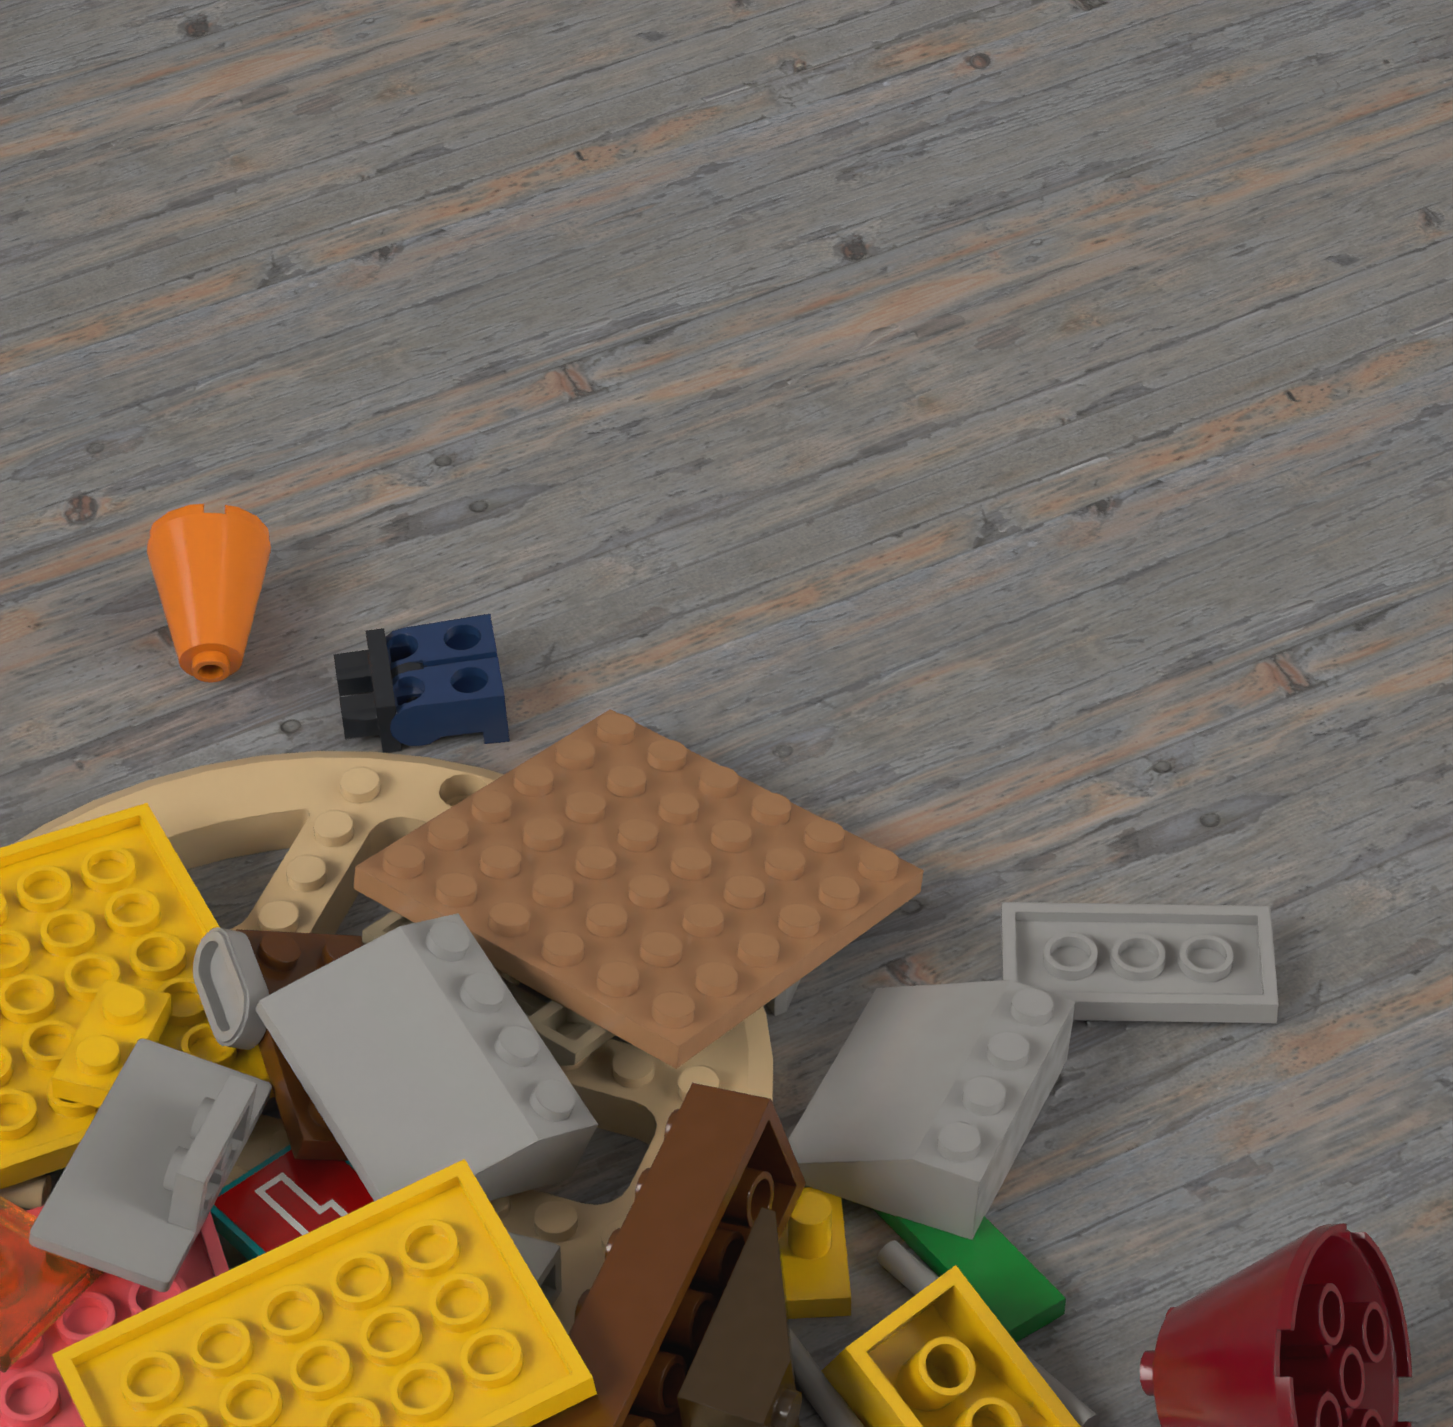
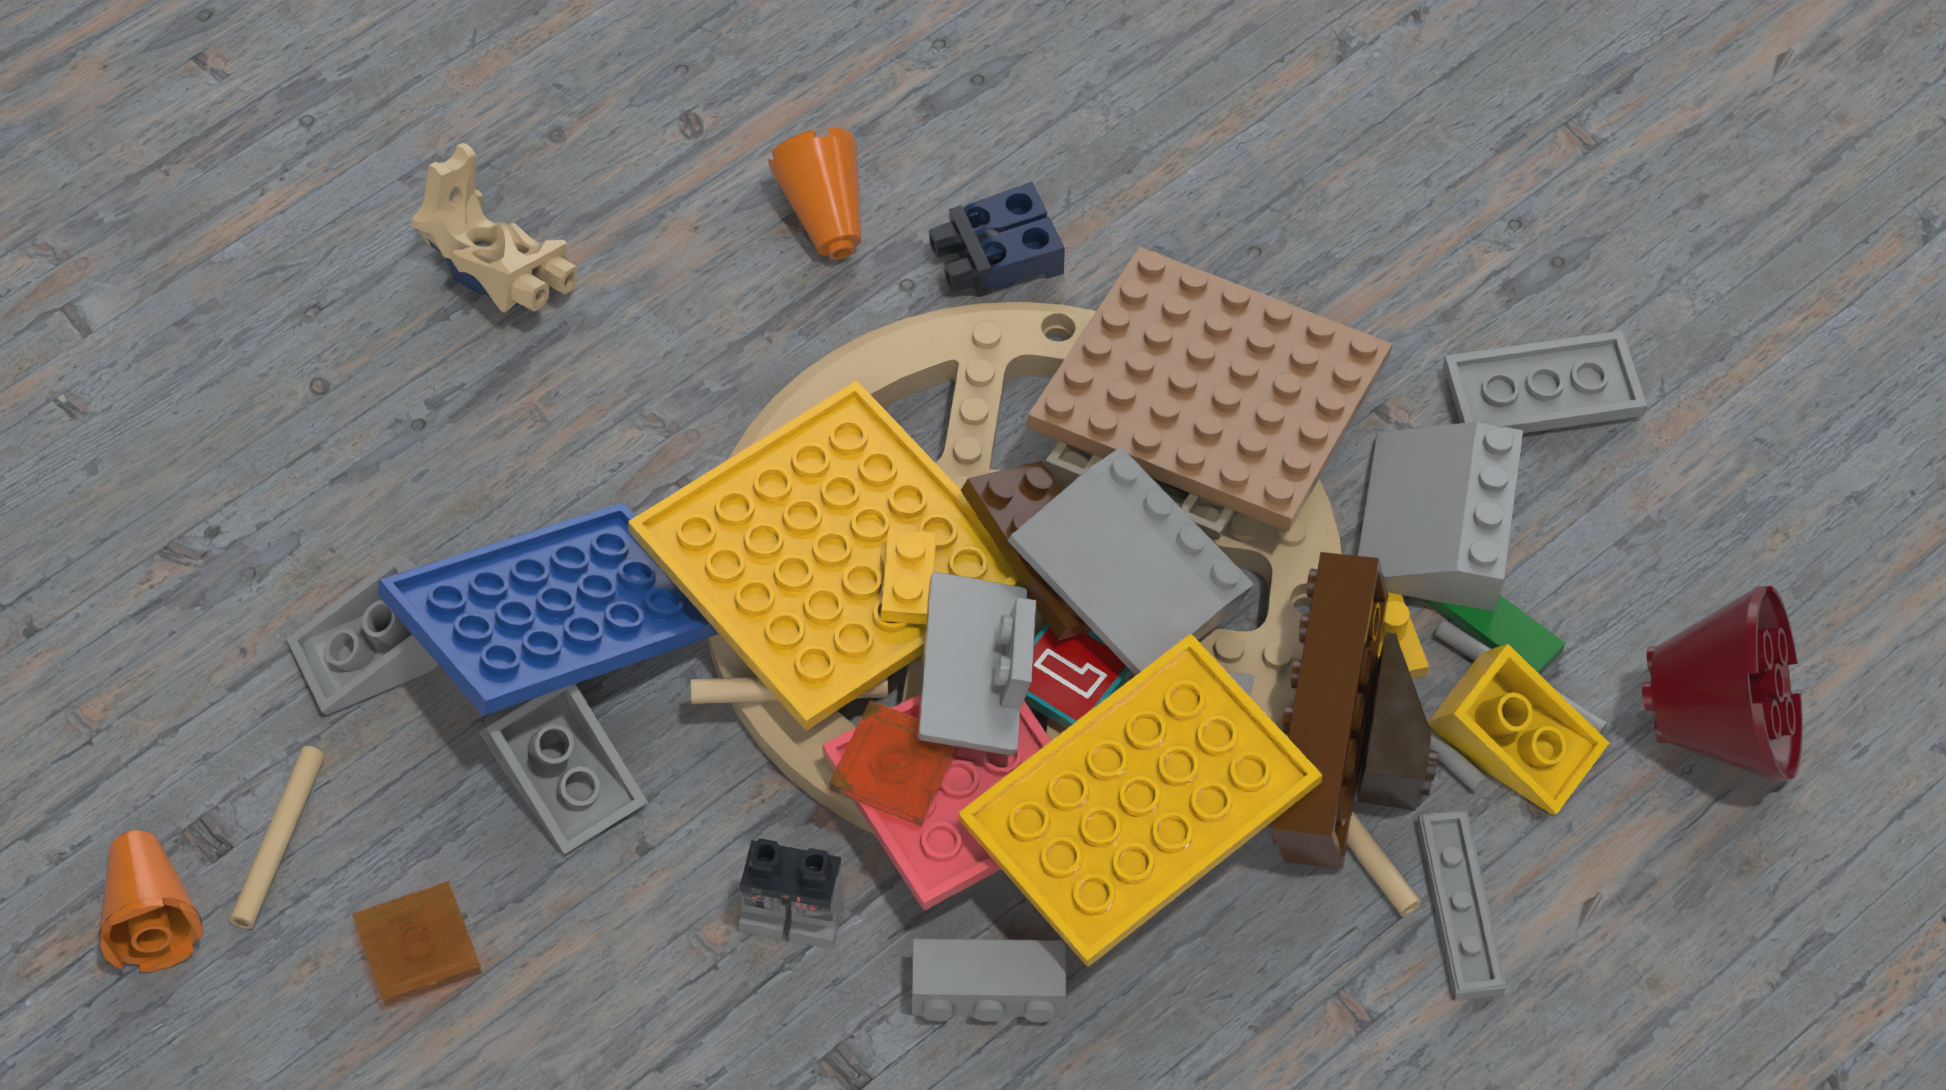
camera: 15 degrees left, 15 degrees up
(230, 987) = (977, 522): light grey tile -> none

